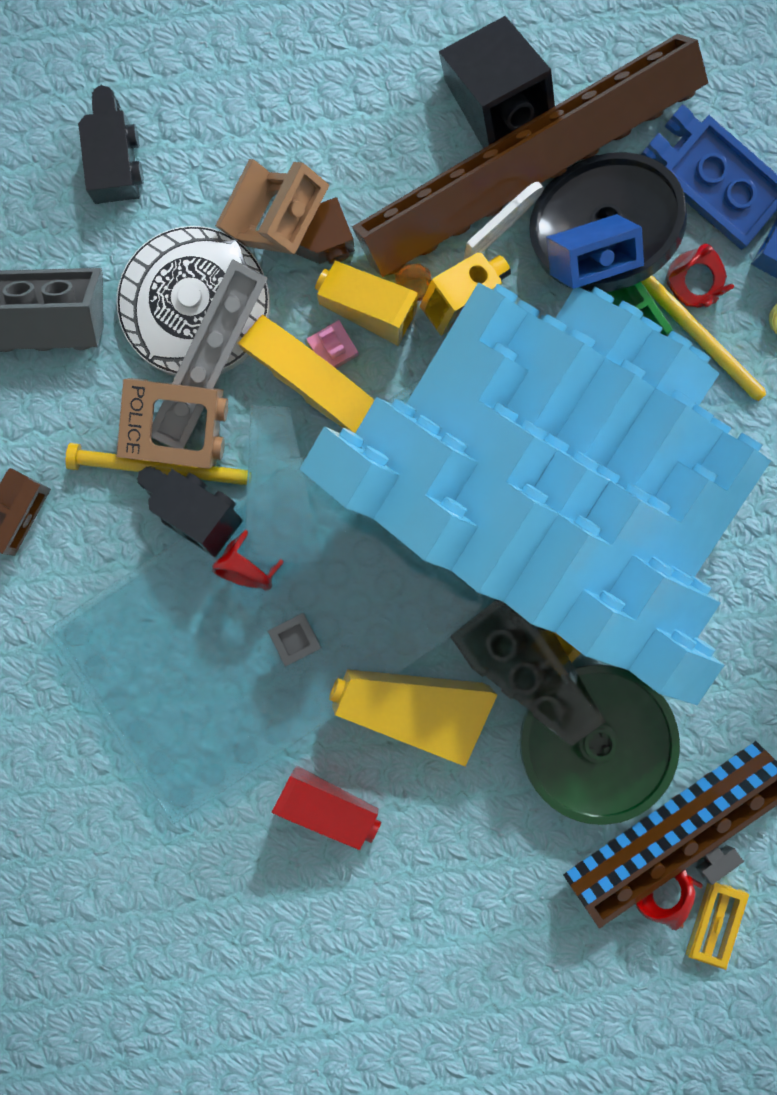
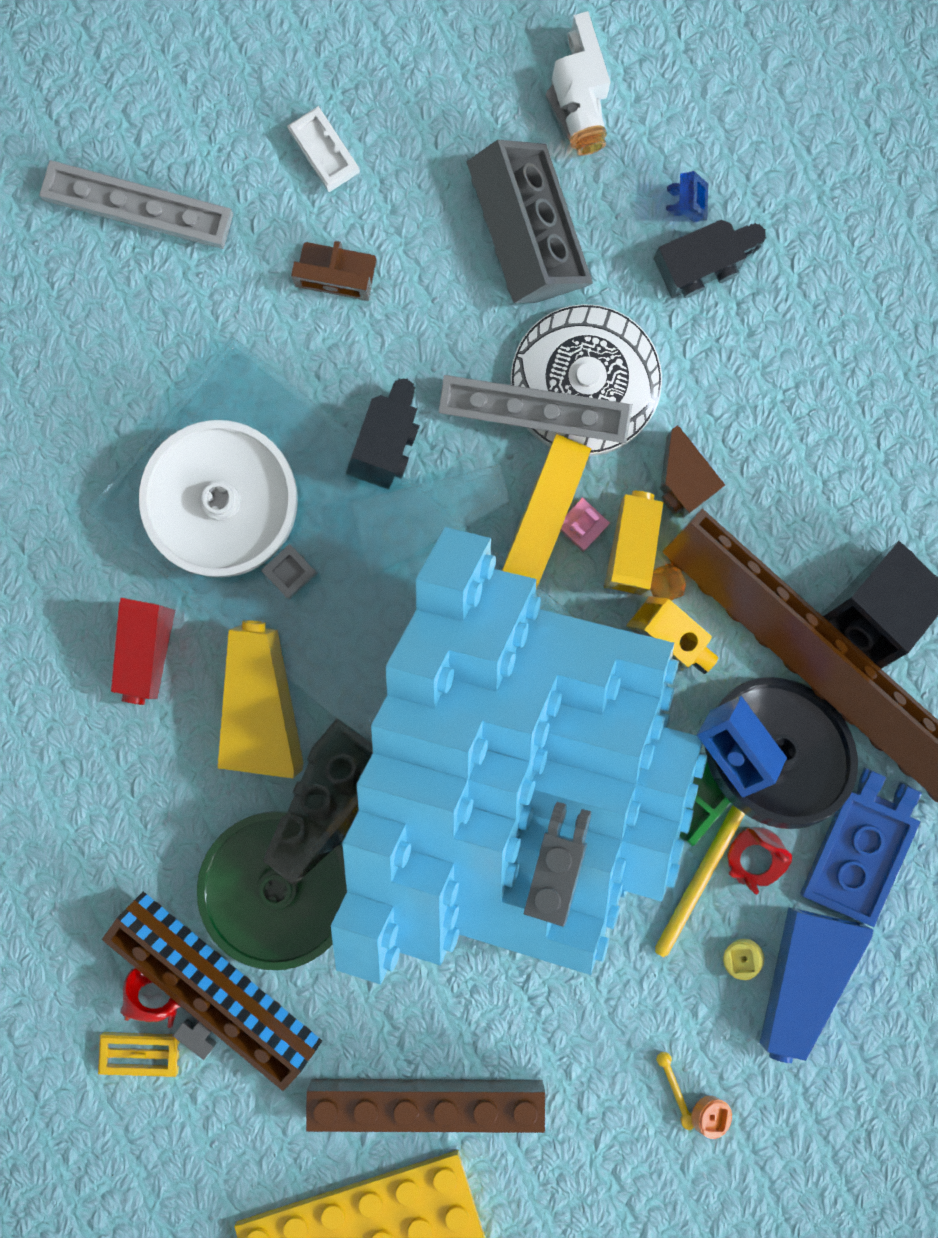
camera: 70 degrees right, 0 degrees up
(48, 146) = (692, 197): none -> clear blue tile
(76, 456) = (404, 315): yellow bar -> none
(137, 422) = (455, 361): medium nougat window -> none
(201, 688) = (218, 498): none -> white dish
(240, 570) = (339, 498): red piece -> none
(289, 216) = (693, 445): medium nougat window -> none
(503, 220) = (751, 651): white window -> none
(668, 455) = (557, 868): none -> dark grey hinge

